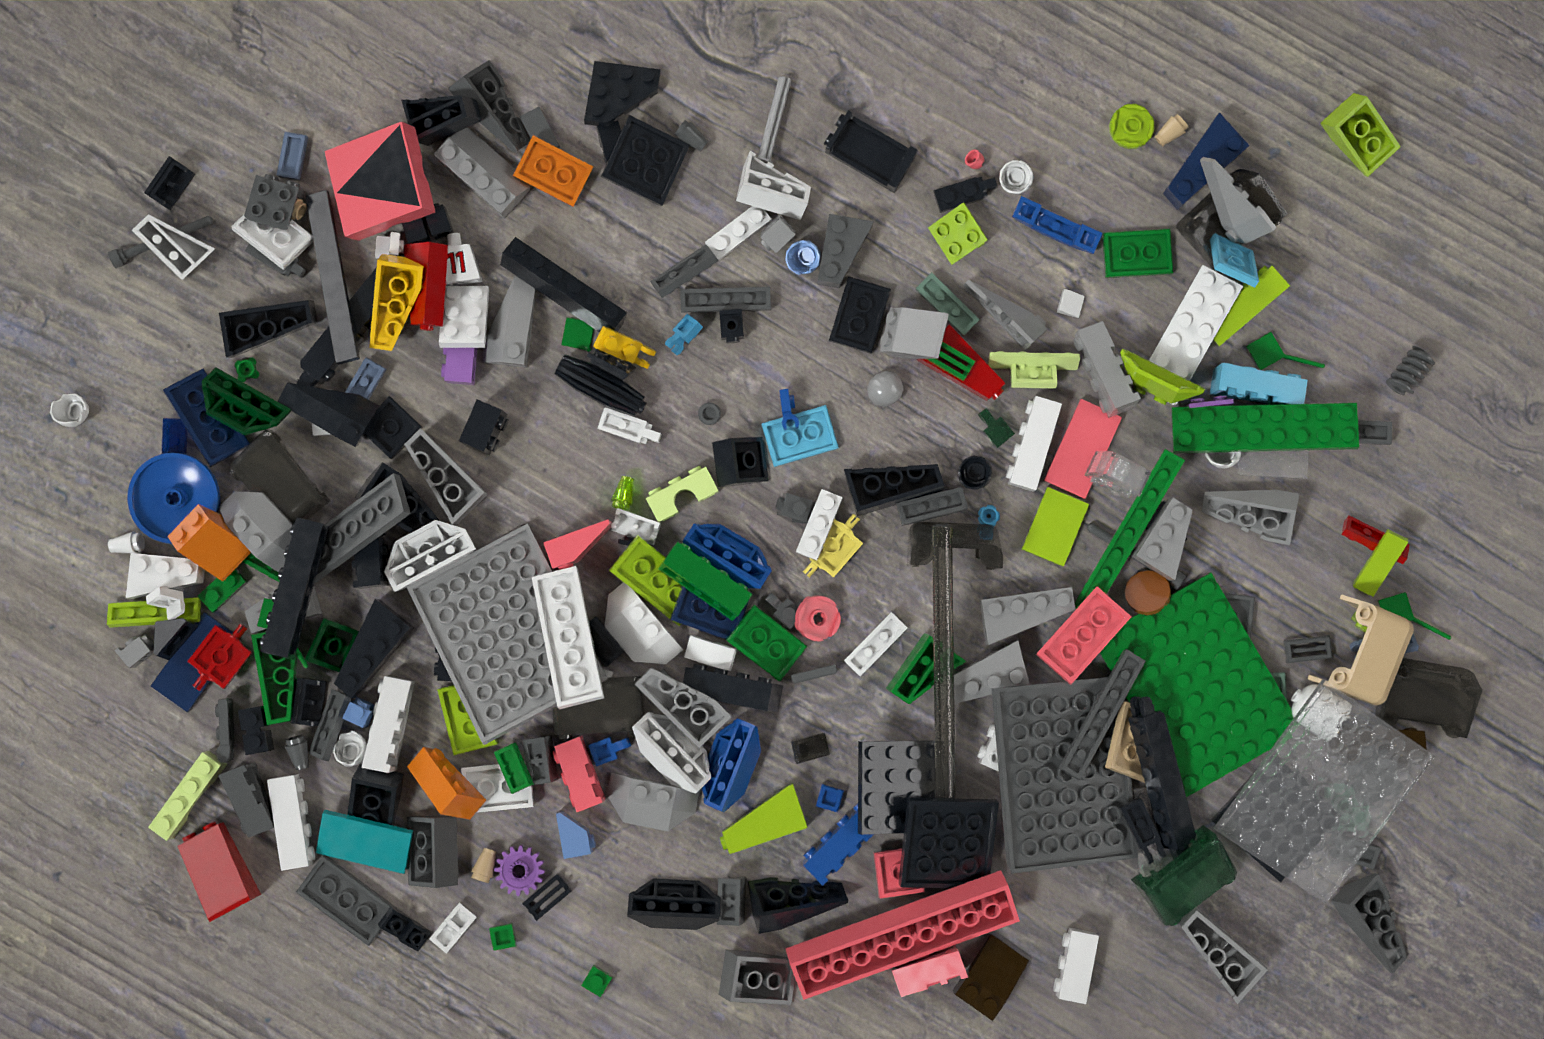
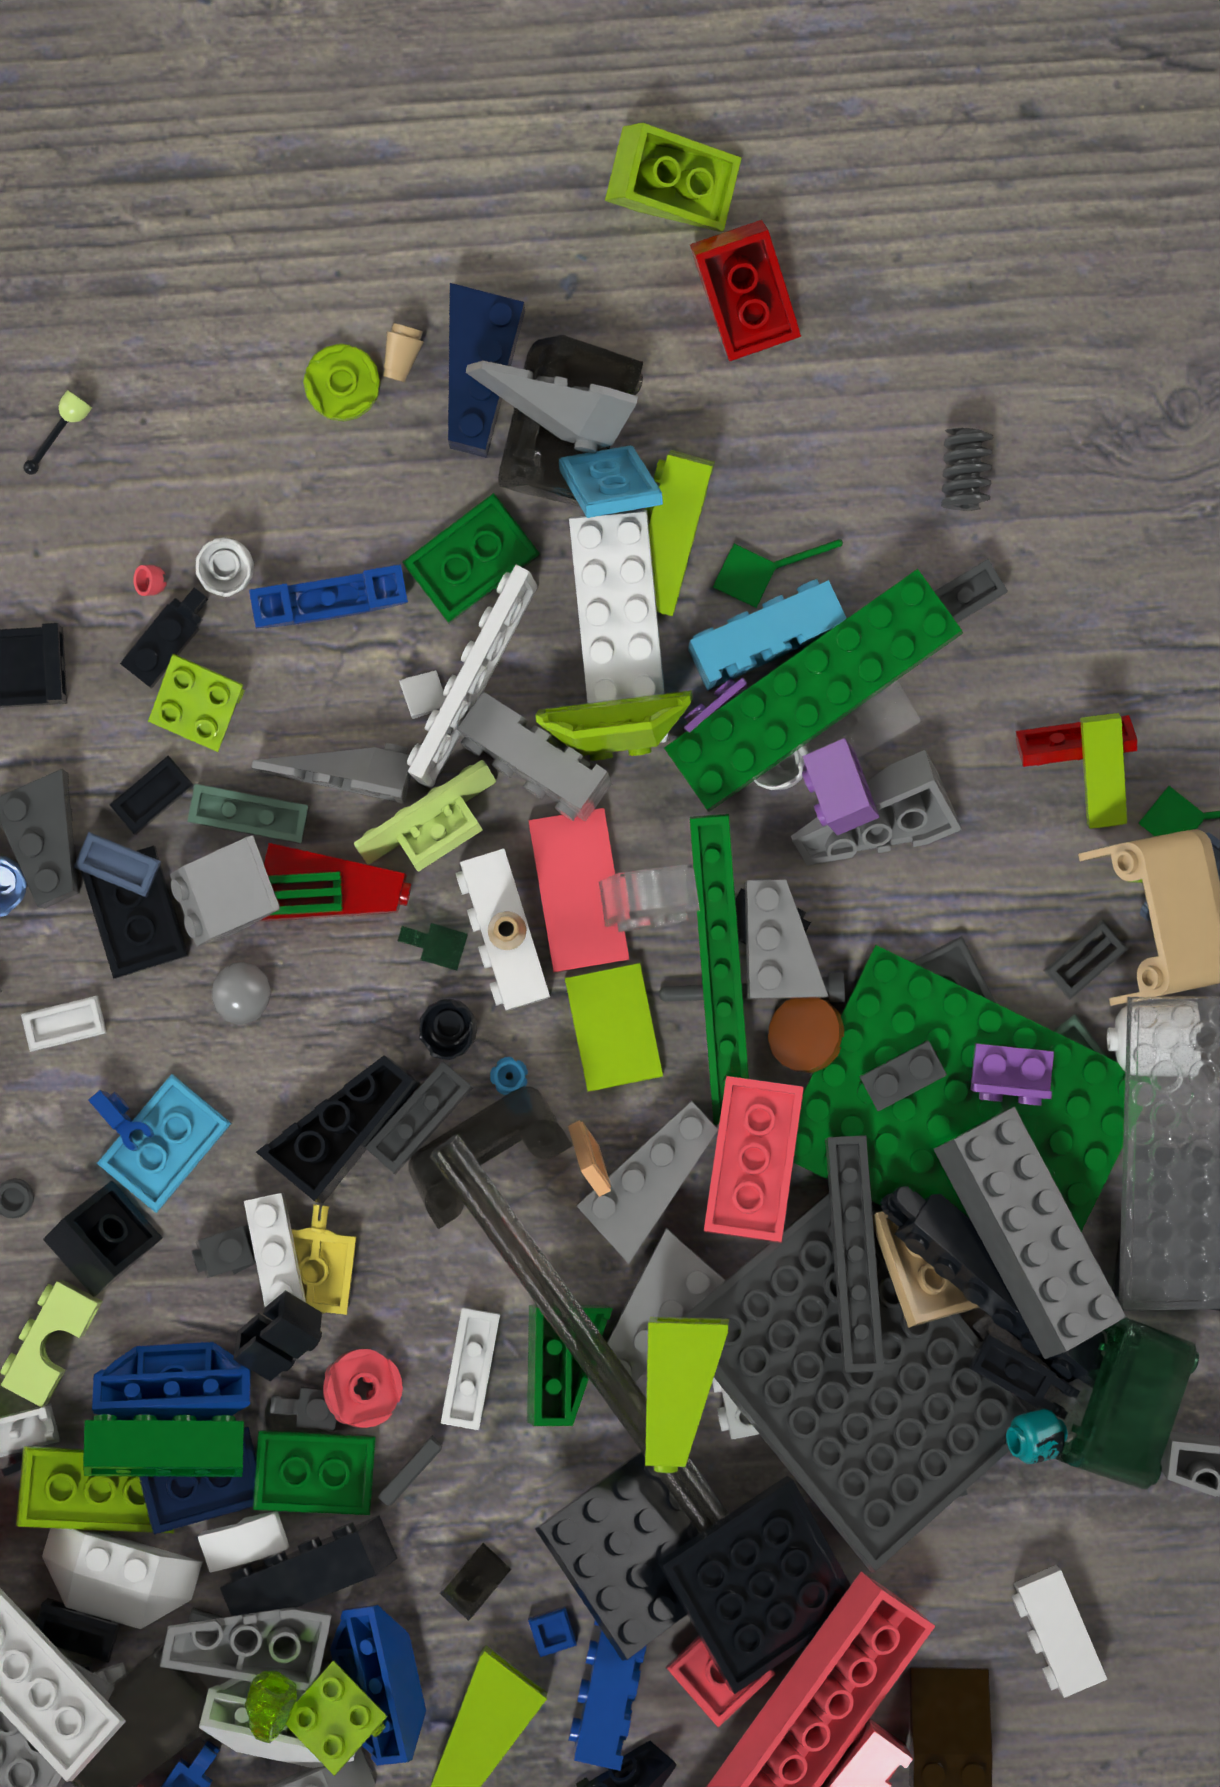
camera: 40 degrees left, 0 degrees up
(674, 738) = (270, 1704): none -> clear neon green rock
(700, 766) = (335, 1718): none -> lime hinge
(789, 568) = (275, 1345): none -> black piece
(790, 345) = (63, 1023): none -> white tile
(868, 286) = (117, 864): none -> sand blue tile
(906, 264) = (151, 795): none -> black tile
(978, 717) = (679, 1378): none -> lime slope
(992, 52) = (71, 410): none -> hinge
(1003, 582) = (589, 1158): none -> light nougat tile
(1033, 448) = (509, 942): none -> tan cone
(1095, 313) = (479, 661): none -> white plate
(1131, 863) = (1036, 1436): none -> teal head
(1182, 644) = (903, 1075): none -> dark grey plate
(1195, 761) = (1029, 1233): none -> brick
(1237, 678) = (1012, 1072): none -> medium lavender bracket
(1247, 483) = (839, 786): none -> medium lavender brick
(1360, 212) = (745, 290): none -> red slope

